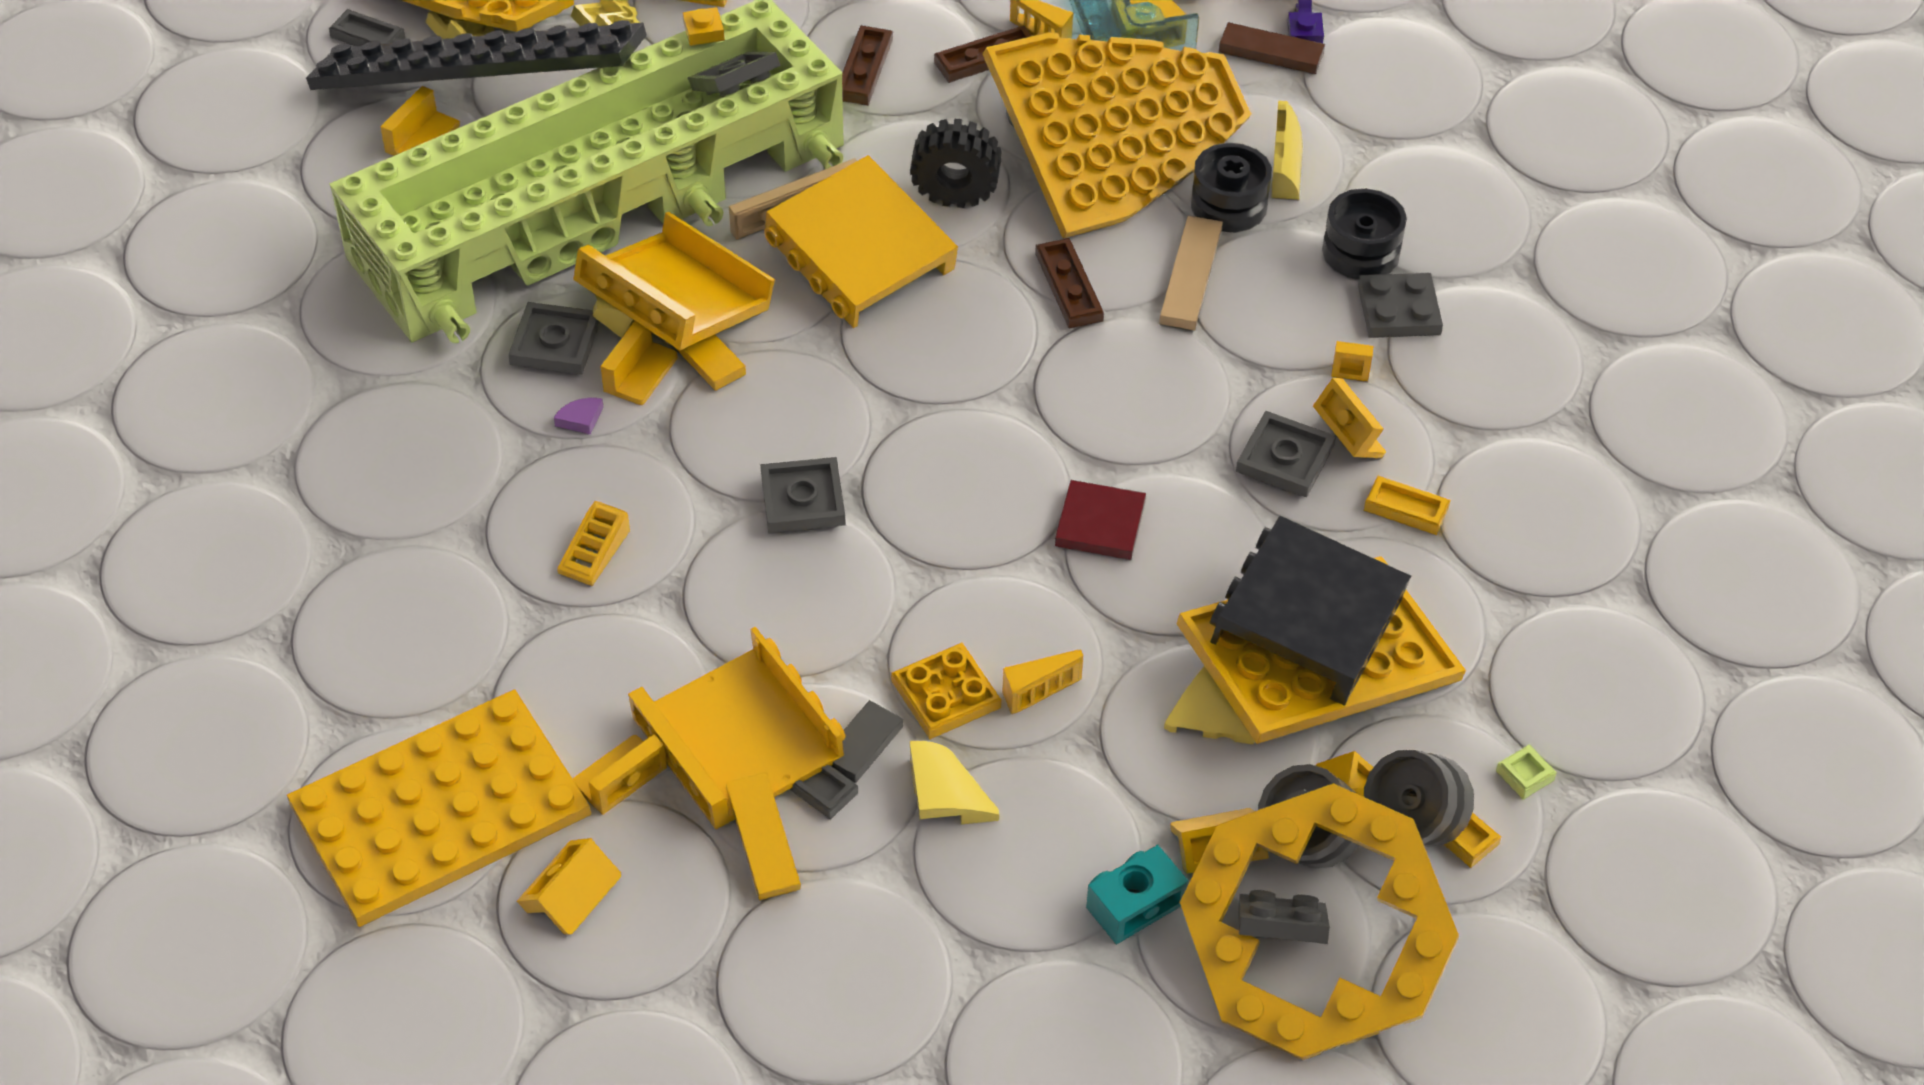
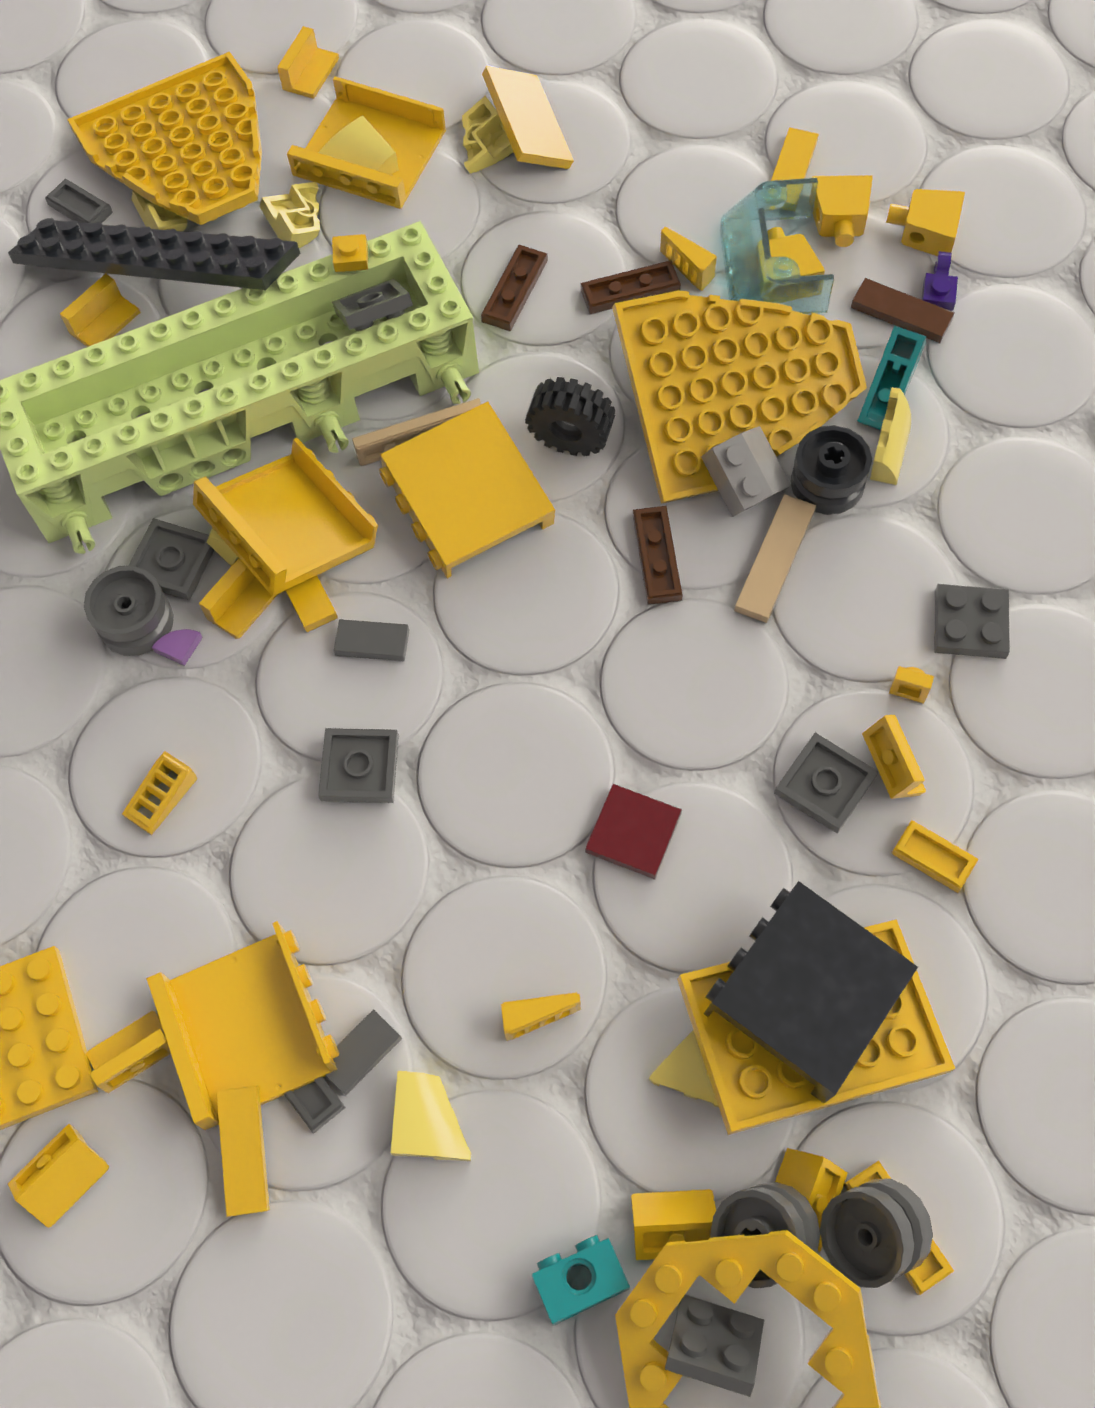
camera: 15 degrees right, 15 degrees up
(524, 383) = (128, 610): none -> dark grey wheel
(787, 387) = (371, 640): none -> dark grey tile
(946, 690) = (449, 1005): yellow tile -> none
(1143, 196) = (745, 470): none -> light grey slope
(1278, 83) = (895, 371): none -> teal slope
(1364, 233) = (950, 540): black wheel -> none
(1526, 771) = (994, 1192): yellowish green tile -> none

